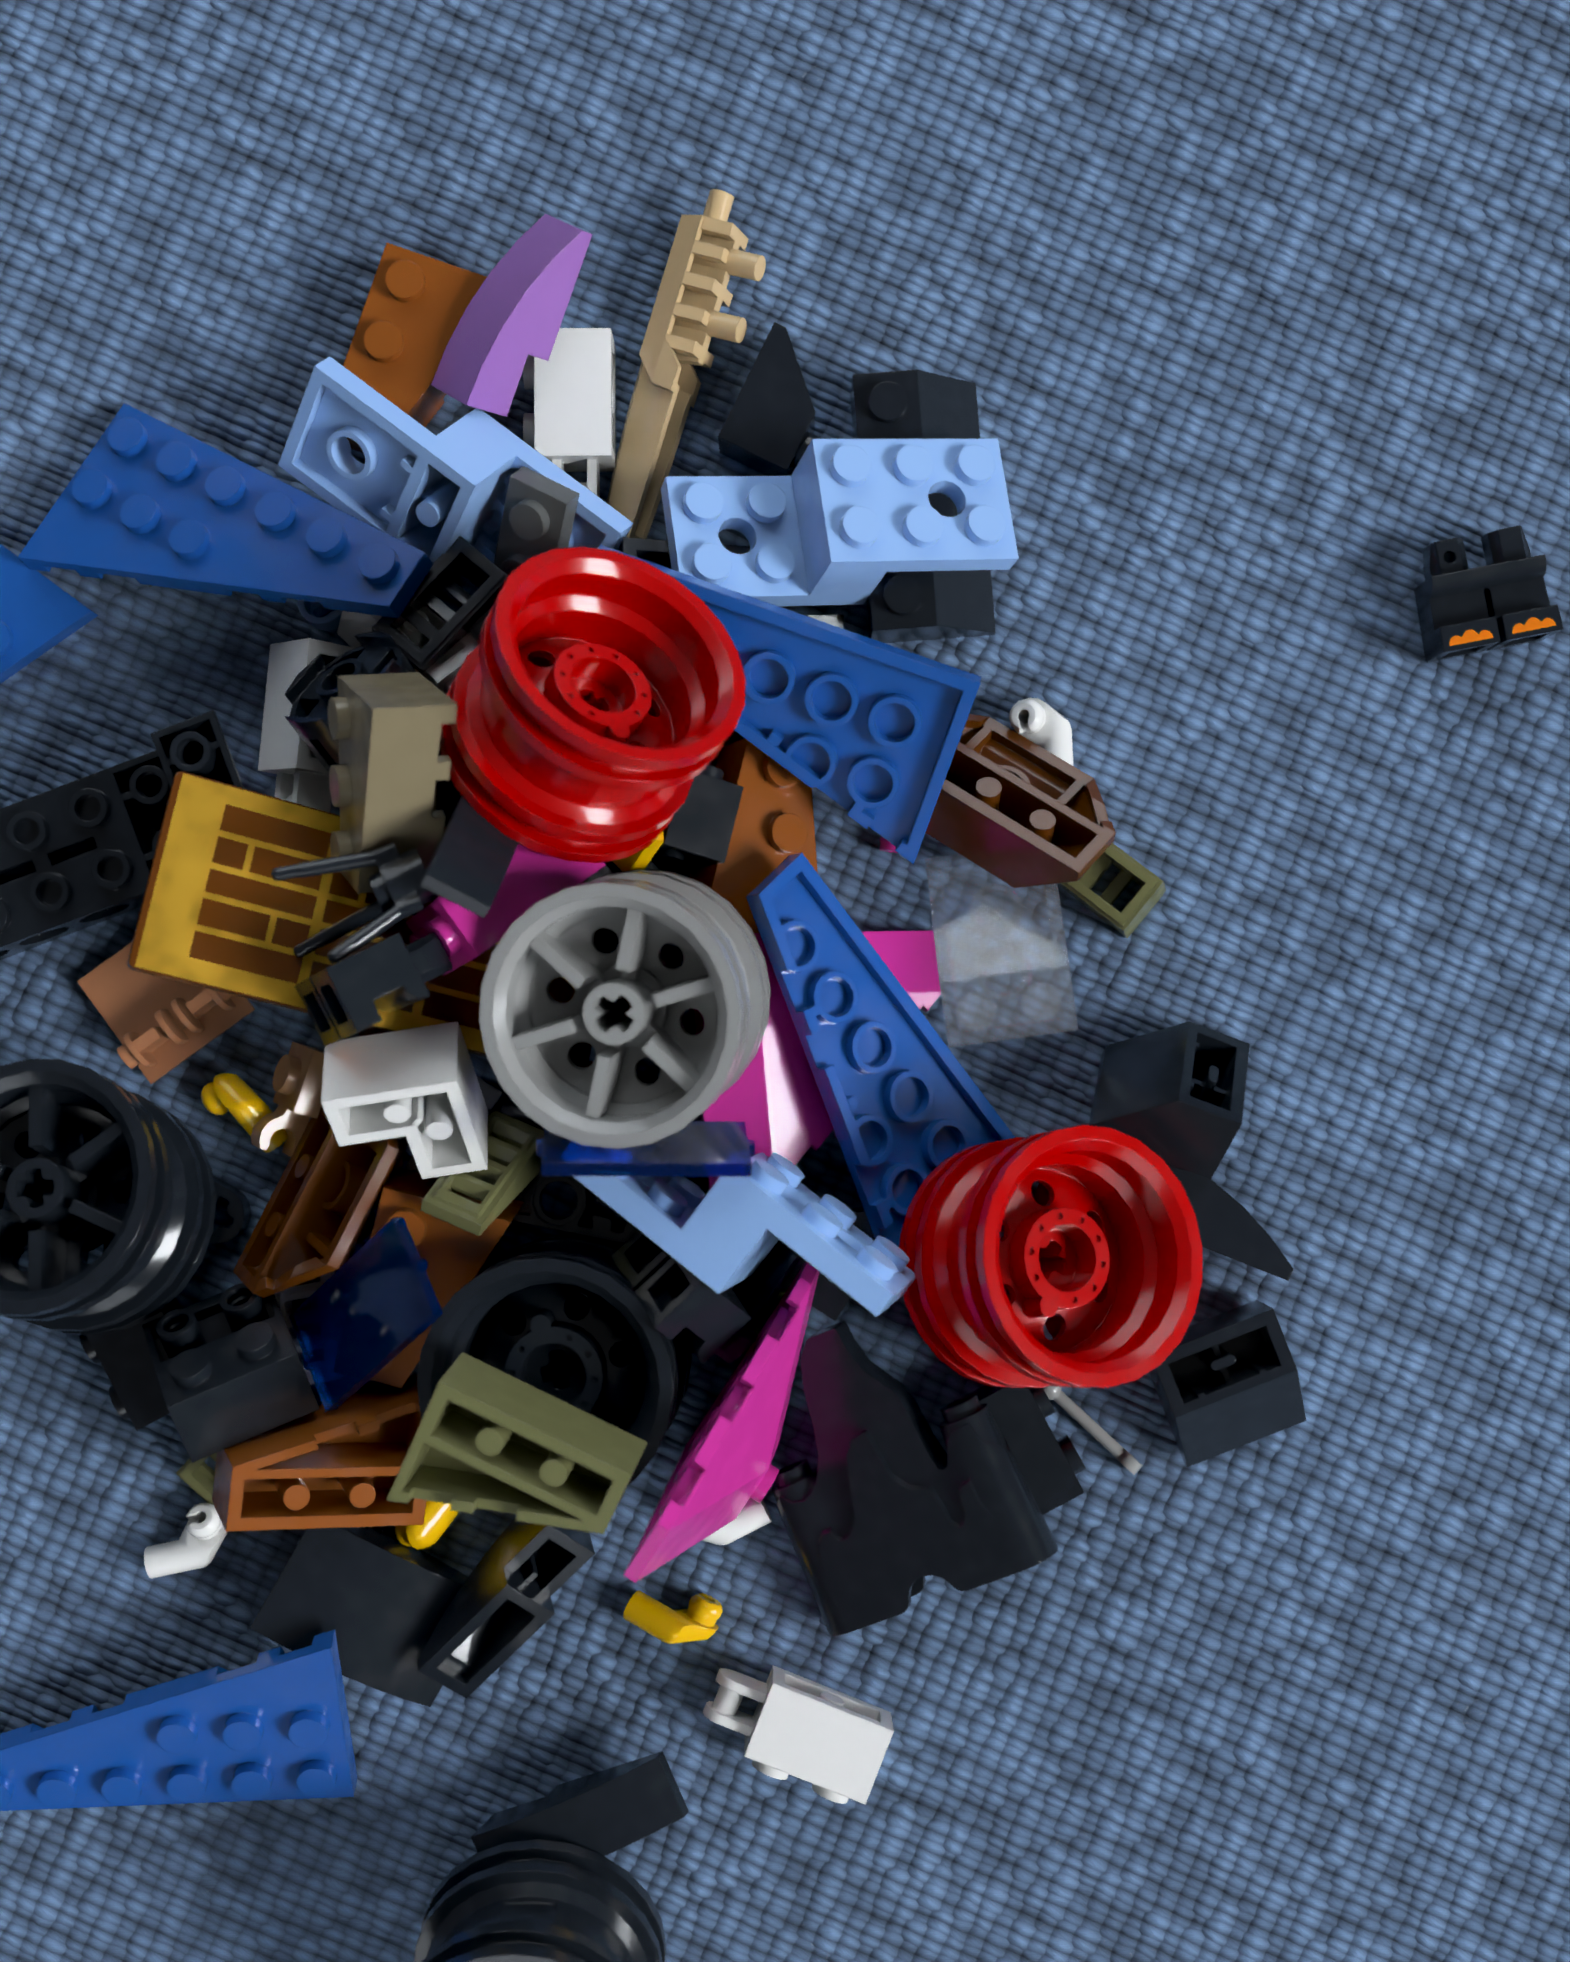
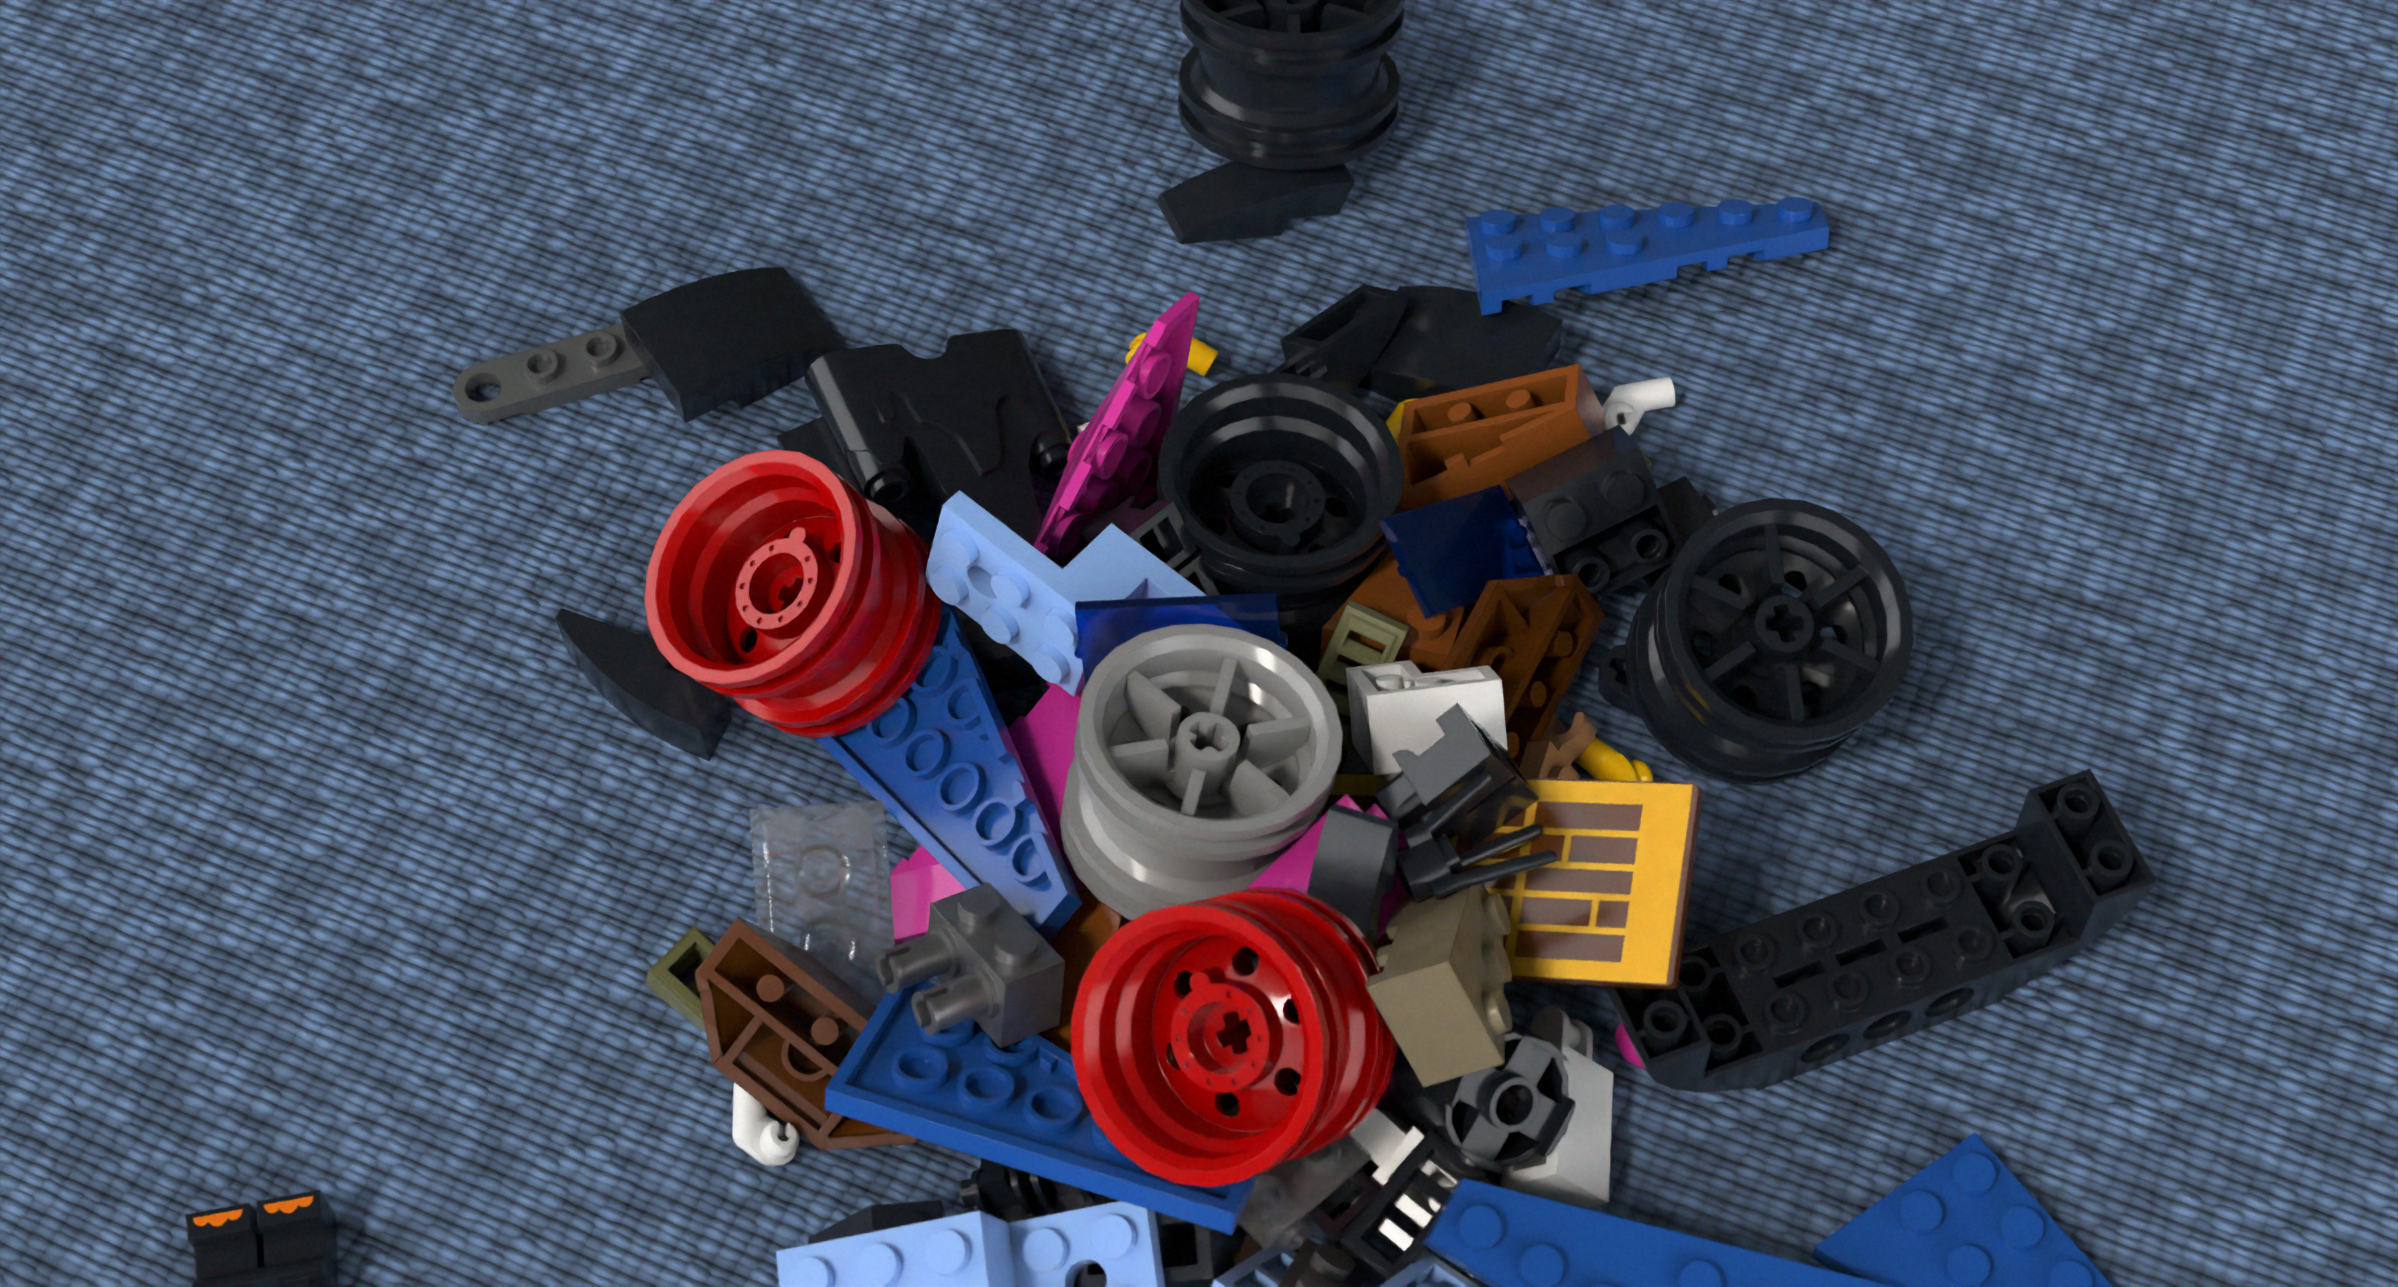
camera: 170 degrees left, 30 degrees down
(158, 1017) = (1729, 871): nougat hinge -> none
(516, 1452) = (1299, 398): olive wedge -> none
(805, 1731) = (1048, 267): white brick -> none
(831, 832) = (987, 968): none -> flat silver brick
(1142, 1637) = (727, 338): none -> black slope
(1175, 1093) = (660, 764): black slope -> none
(1229, 1383) = (617, 536): black slope -> none
(1309, 1608) = (550, 375): none -> dark grey plate

